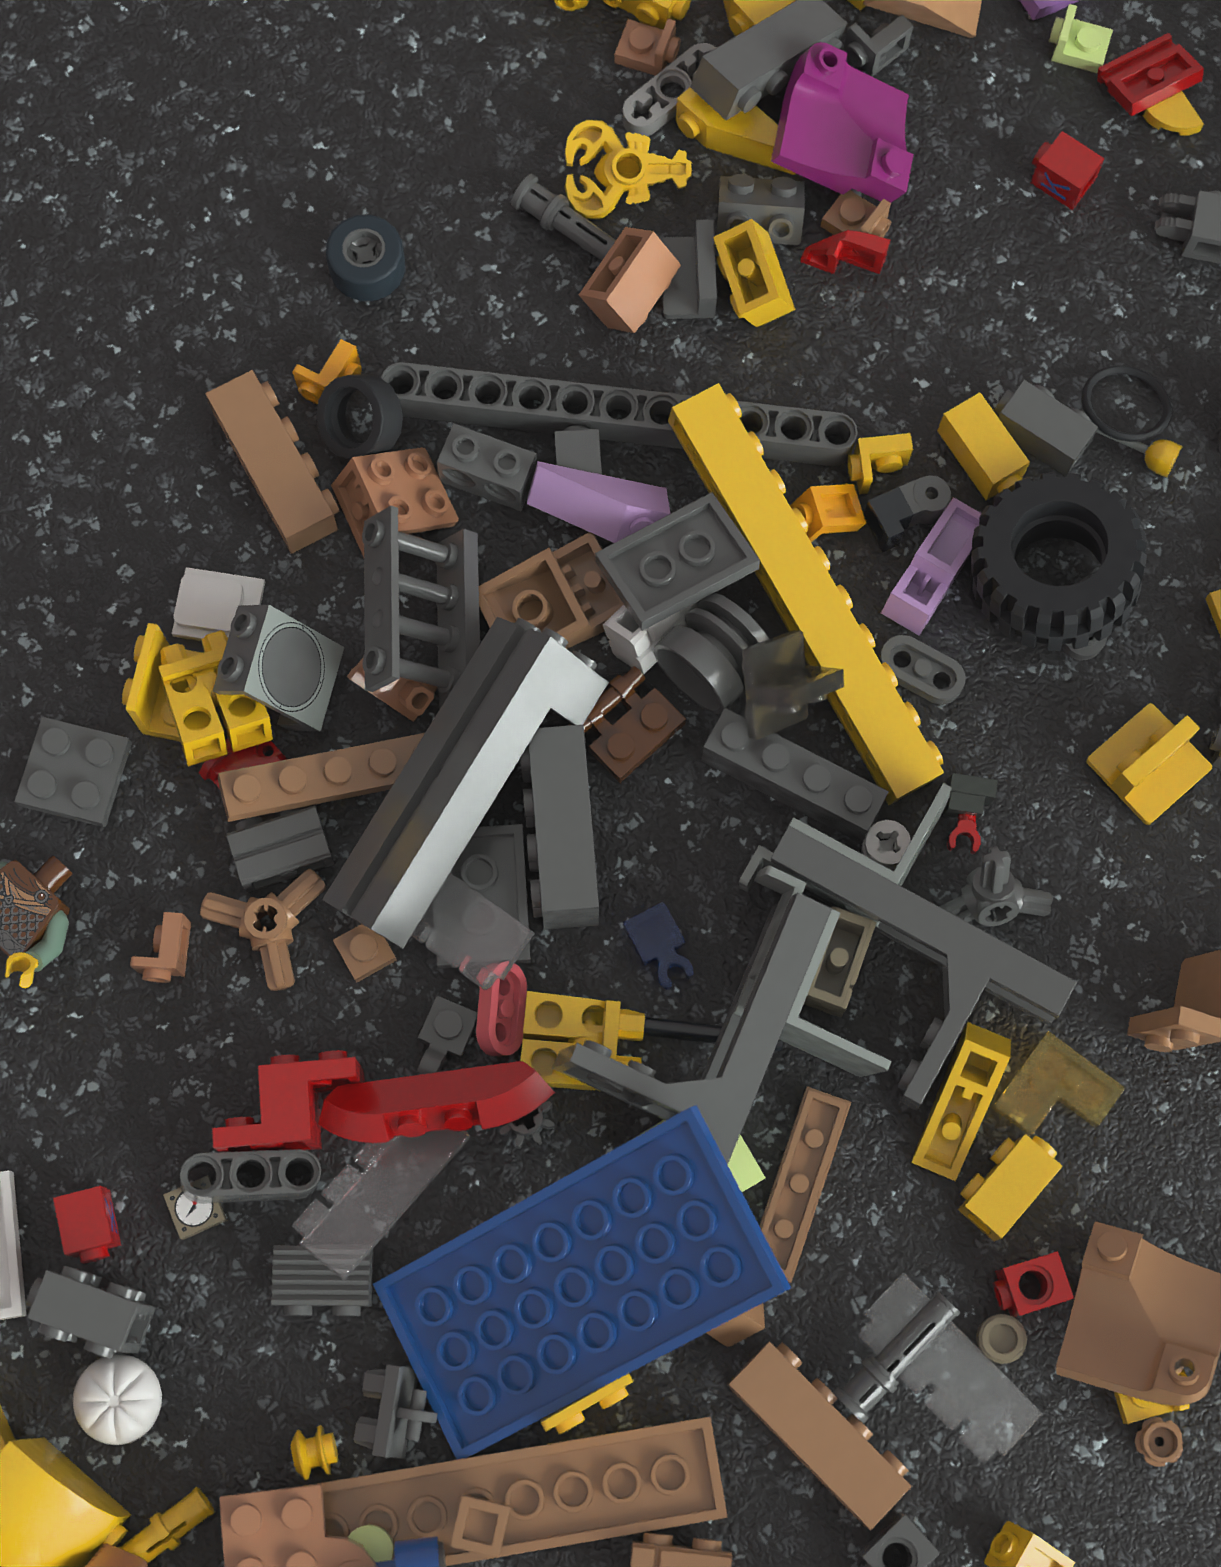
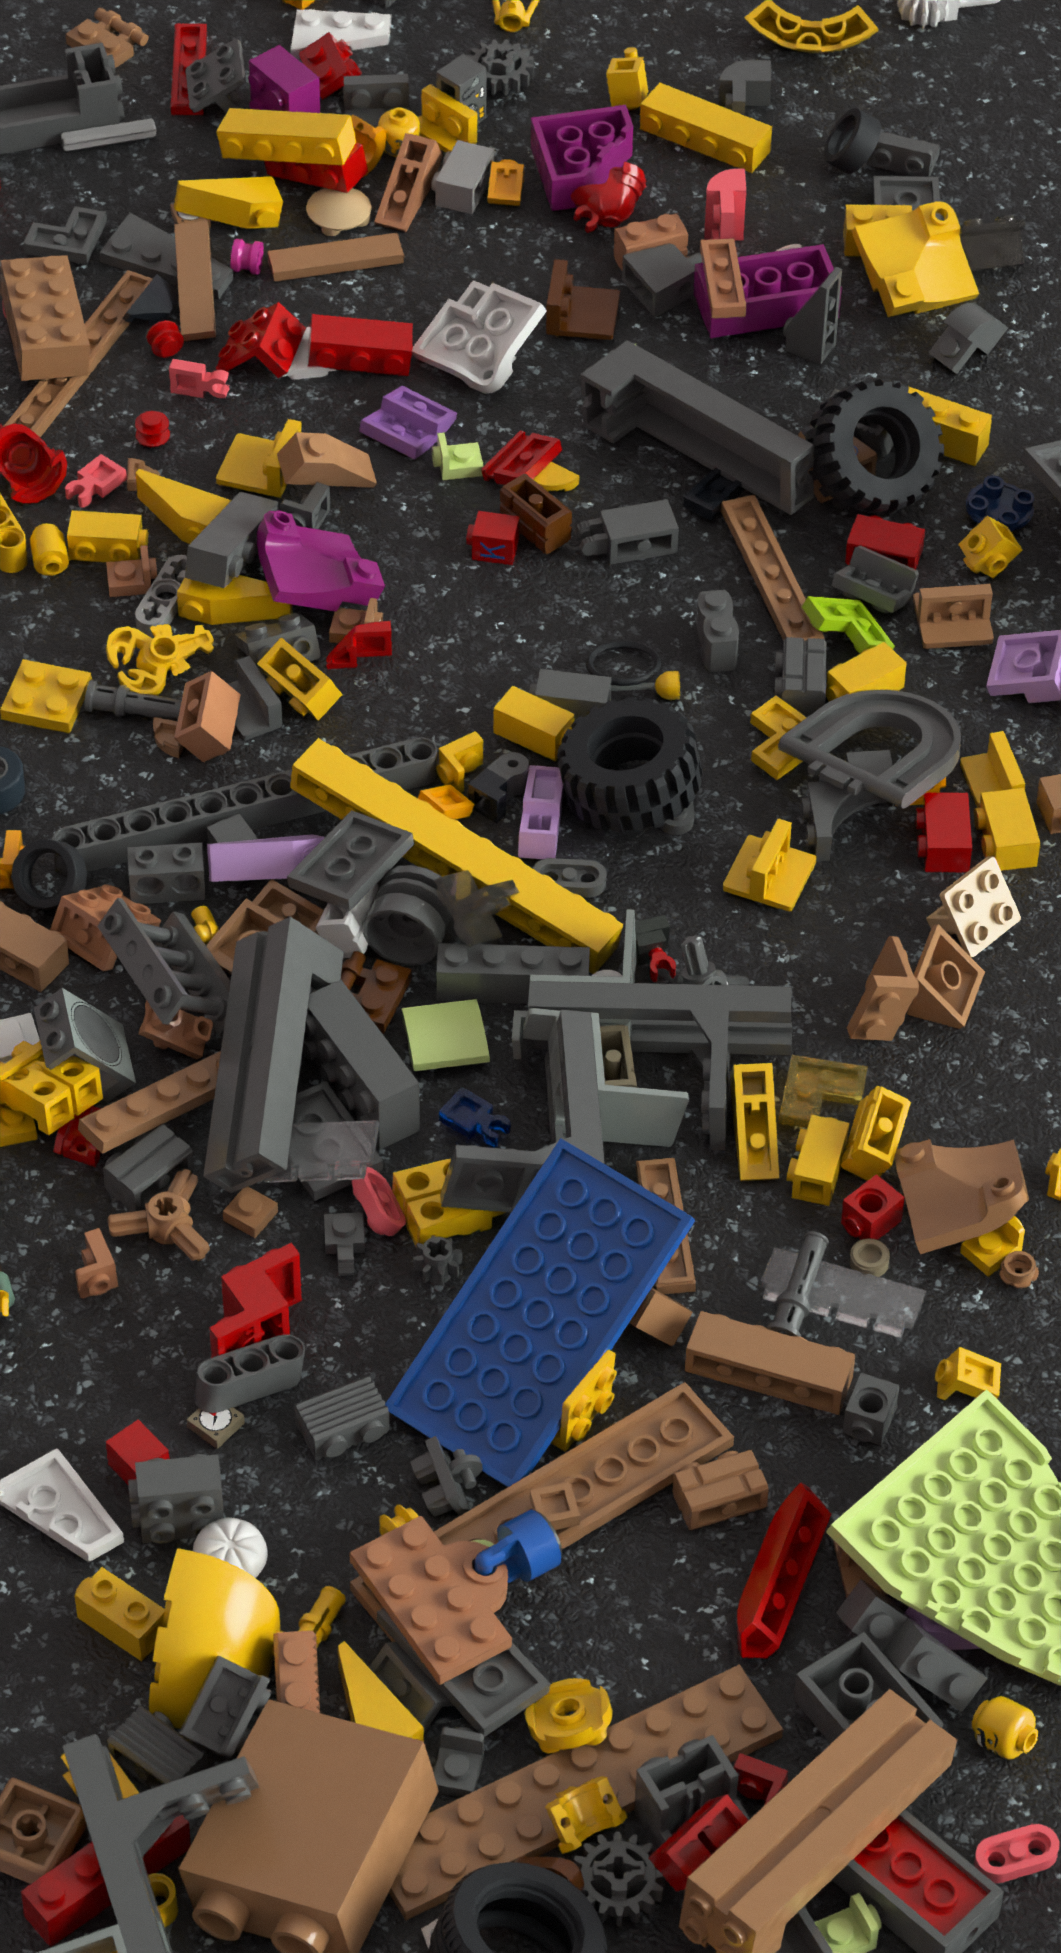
camera: 25 degrees left, 25 degrees down
(373, 1201) = (351, 1340): clear windscreen -> none
(434, 1102) = (366, 1261): red brick -> none
(480, 167) = (45, 696): none -> yellow plate
(501, 553) = (205, 923): none -> yellow arm
(581, 271) = (164, 735): none -> medium nougat tile
(683, 818) = (445, 1035): none -> yellowish green slope
(1087, 1190) = (875, 1133): none -> yellow brick
(1130, 164) = (541, 515): none -> reddish brown brick

